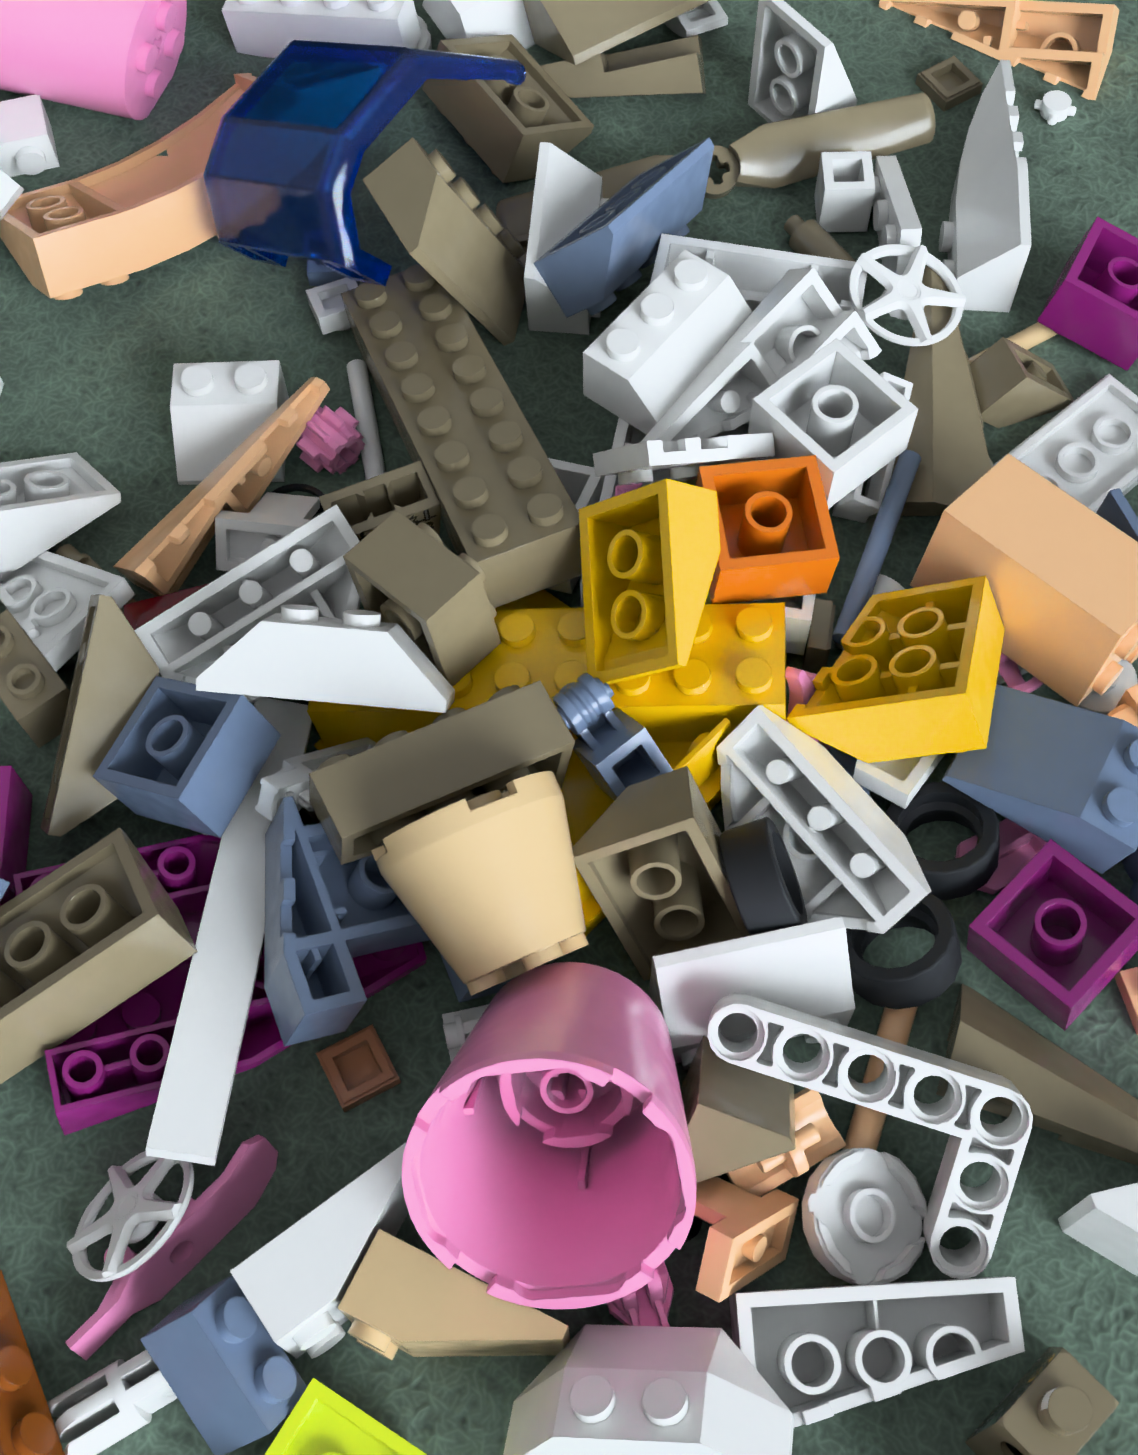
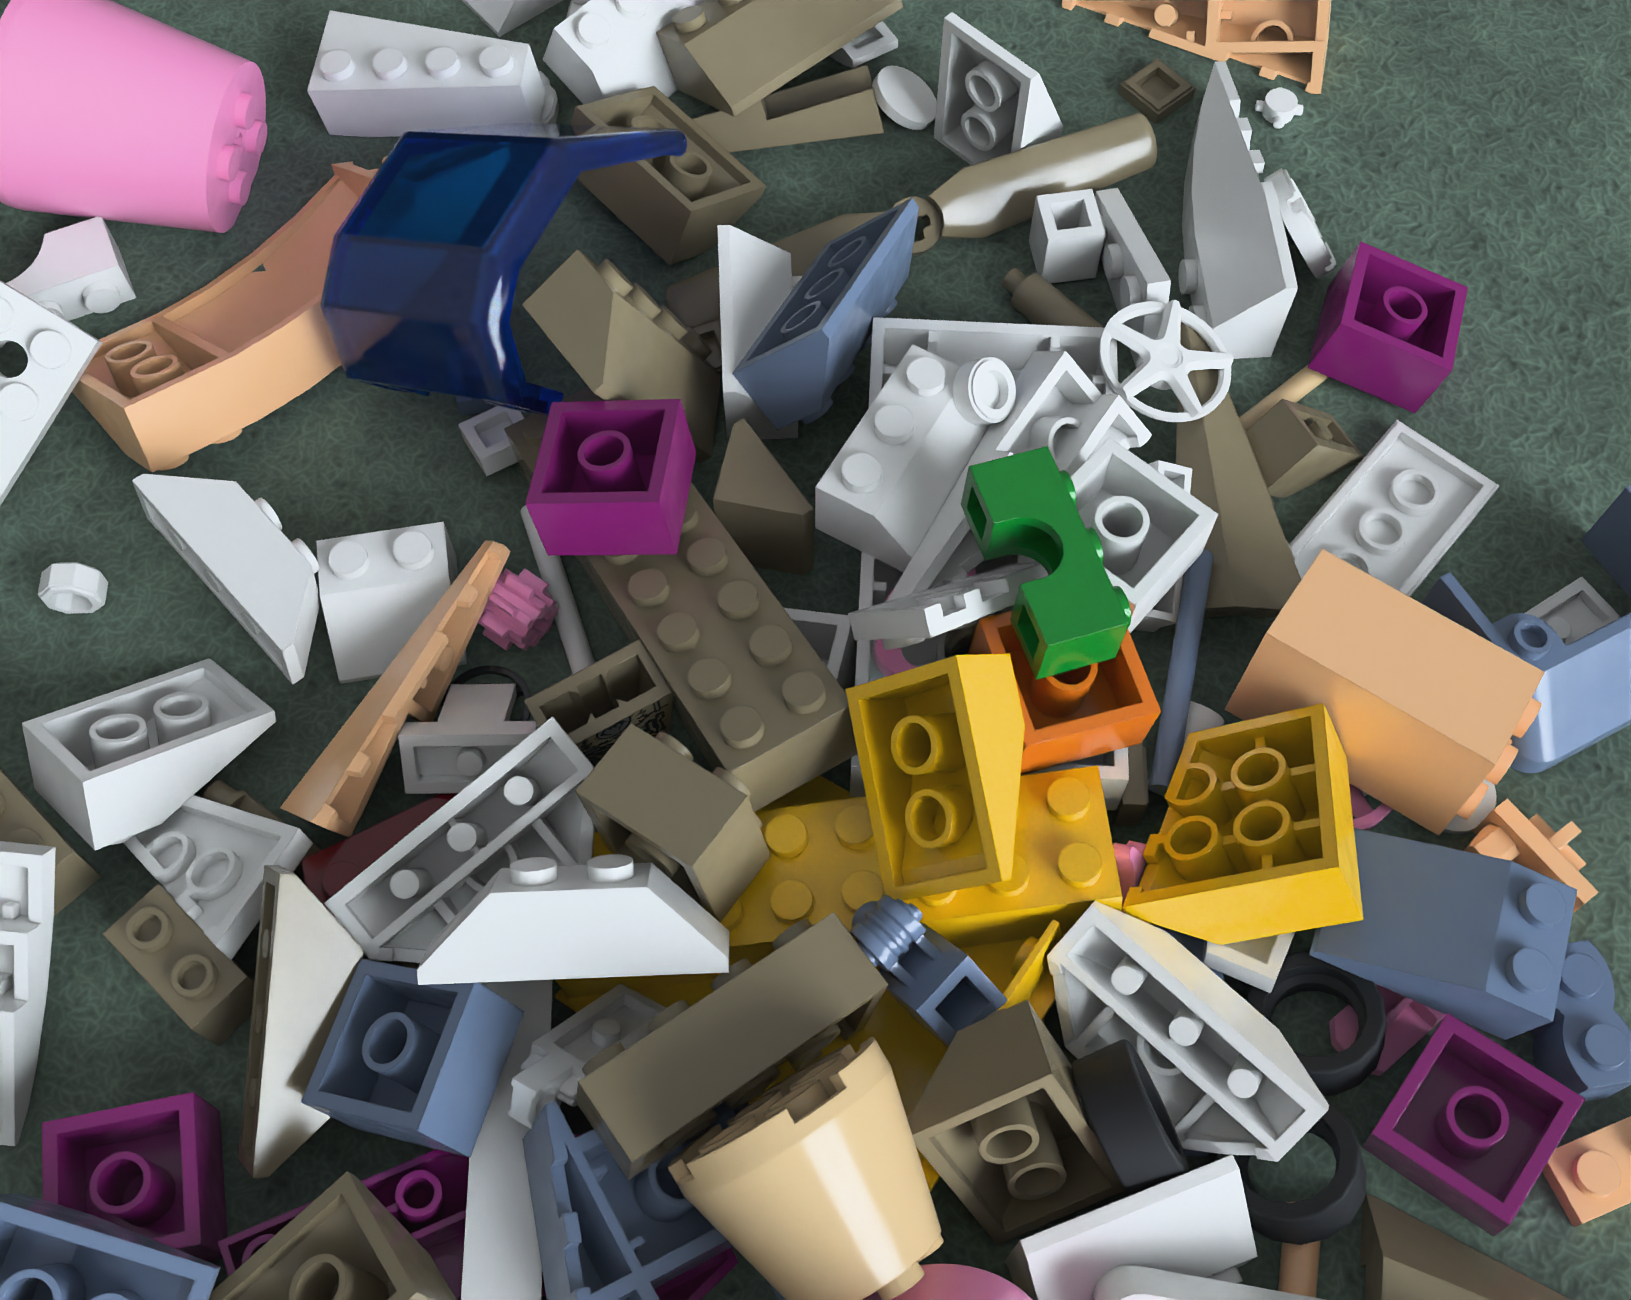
camera: 10 degrees left, 0 degrees up
(110, 368) = (241, 559): none -> white wedge
(417, 327) = (612, 477): none -> magenta brick
(544, 378) = (763, 506): none -> dark tan slope
(726, 66) = (904, 97): none -> white piece
(739, 293) = (984, 391): none -> white tile
(754, 383) = (1031, 511): none -> green arch
(1051, 201) = (1302, 224): none -> white tile

